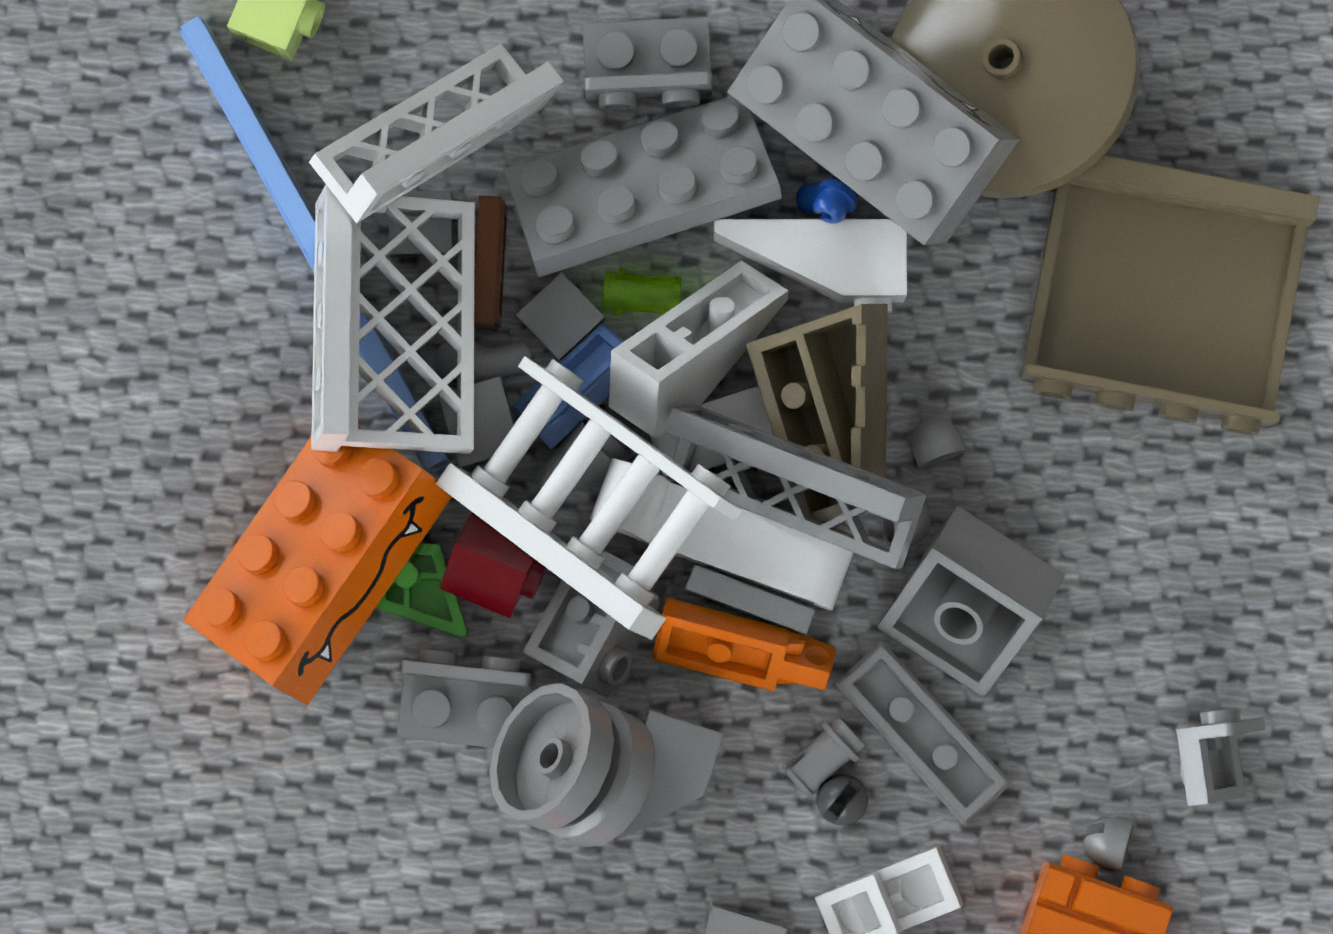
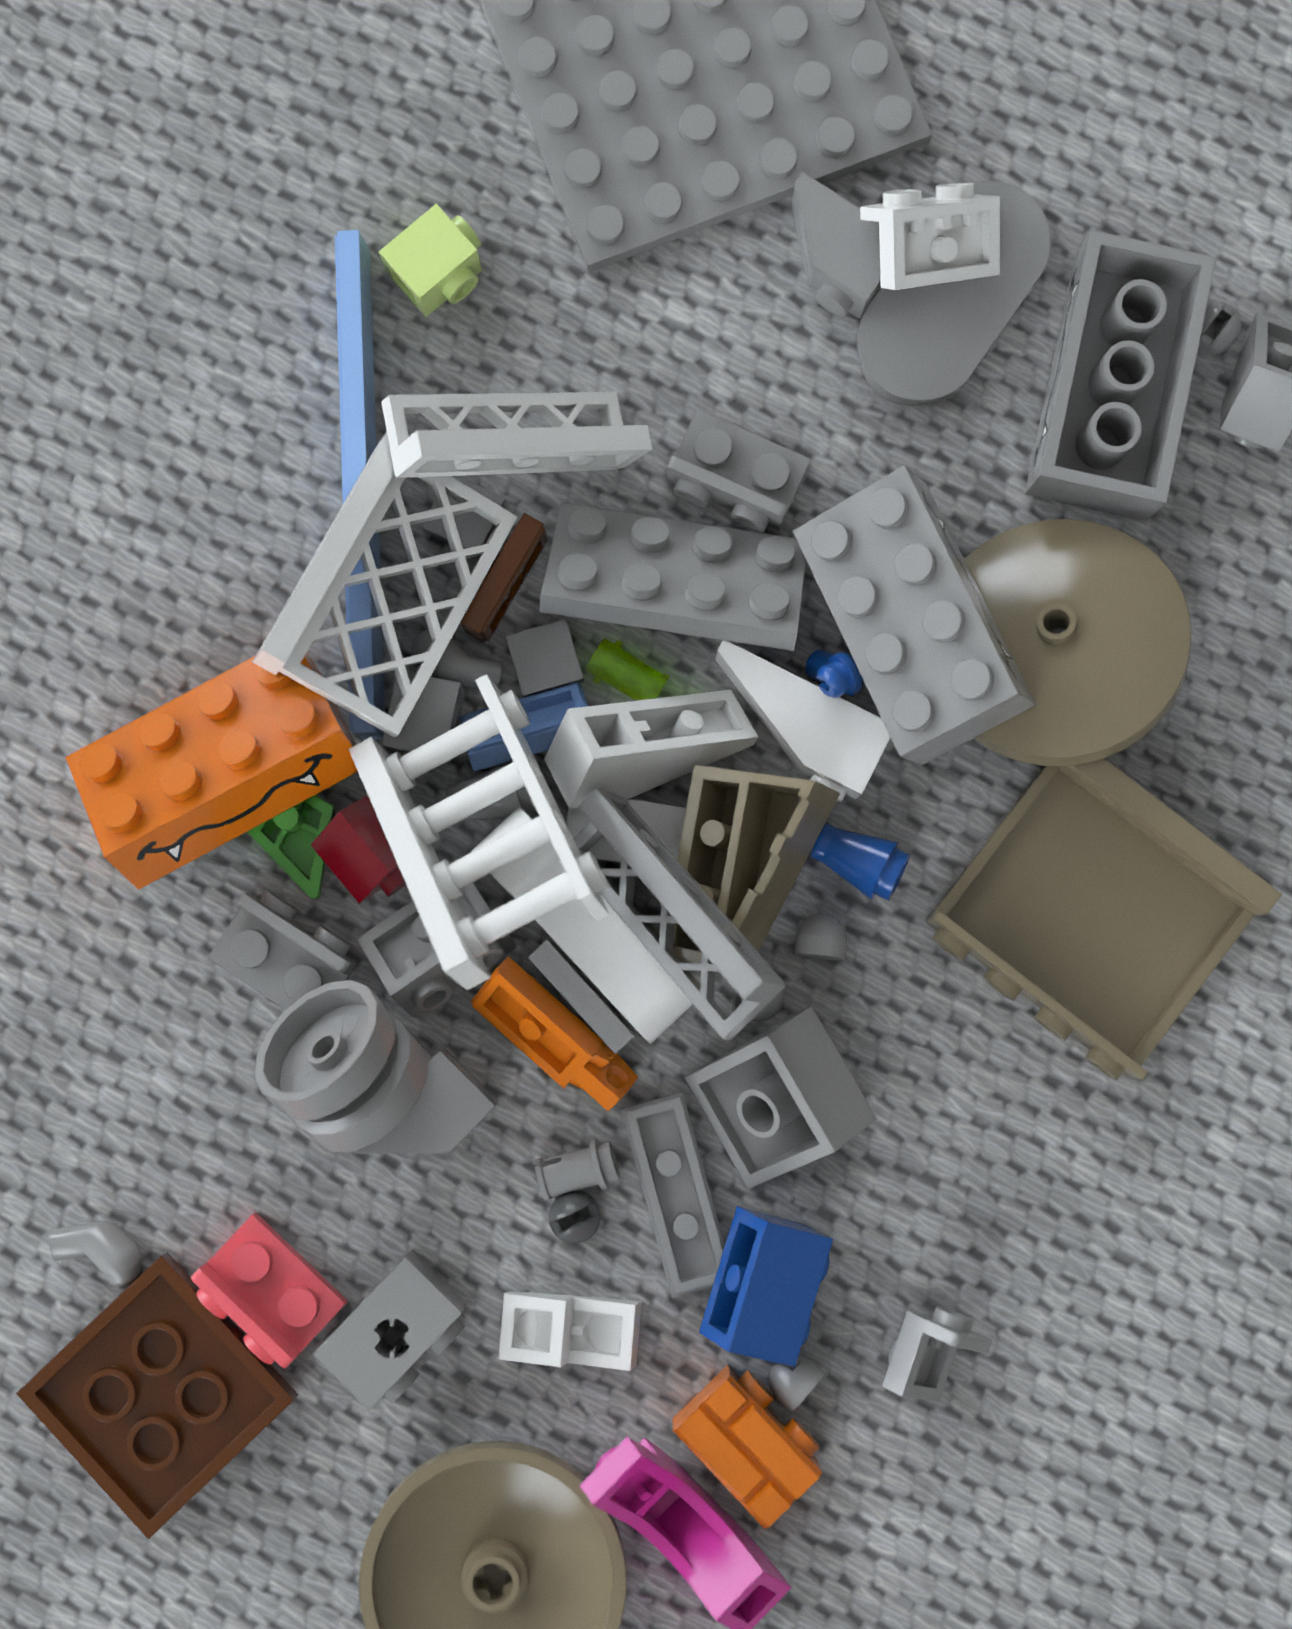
camera: 25 degrees right, 0 degrees up
(936, 354) = (862, 860): none -> blue cone
(1042, 771) = (766, 1287): none -> blue brick

